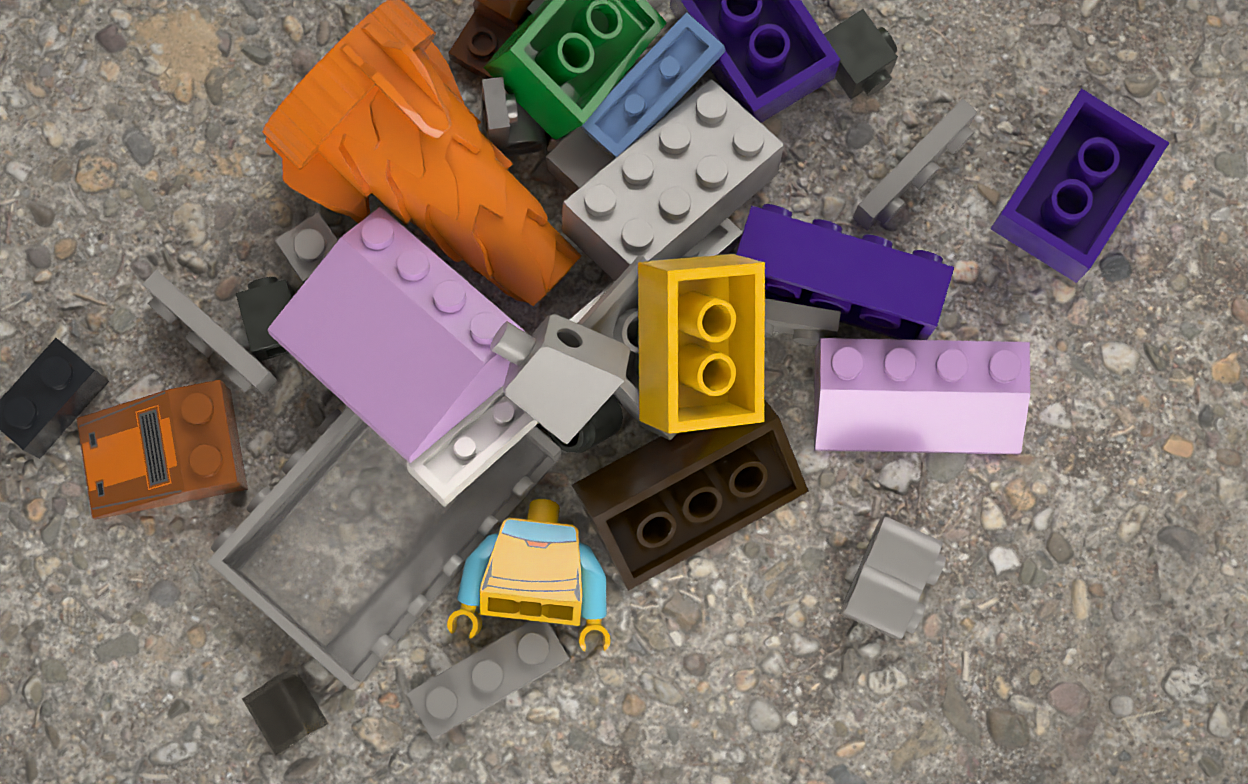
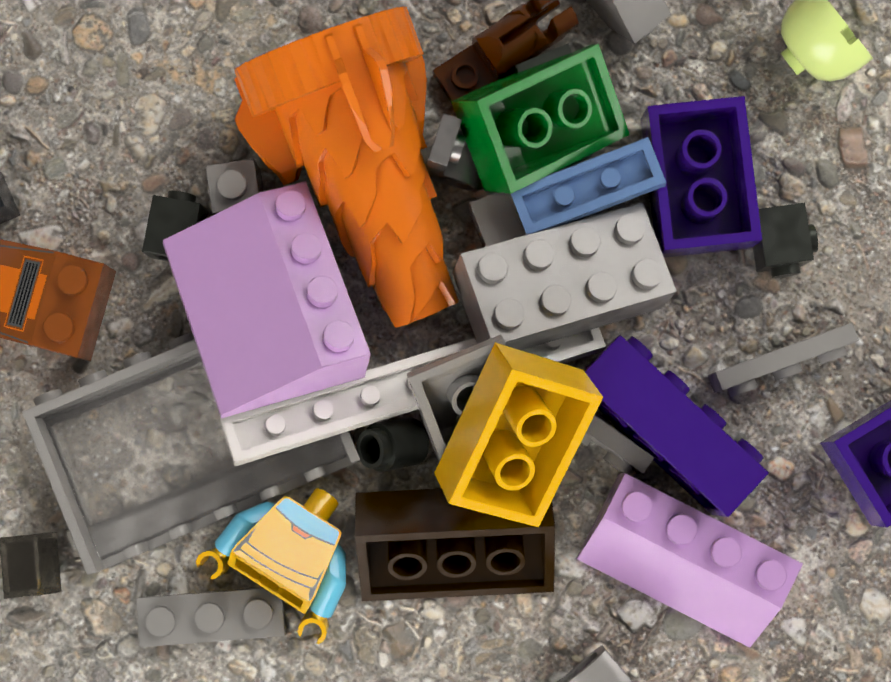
camera: 30 degrees right, 5 degrees up
(207, 335) = (116, 217): light grey plate -> none
(560, 372) = (383, 405): torso -> none

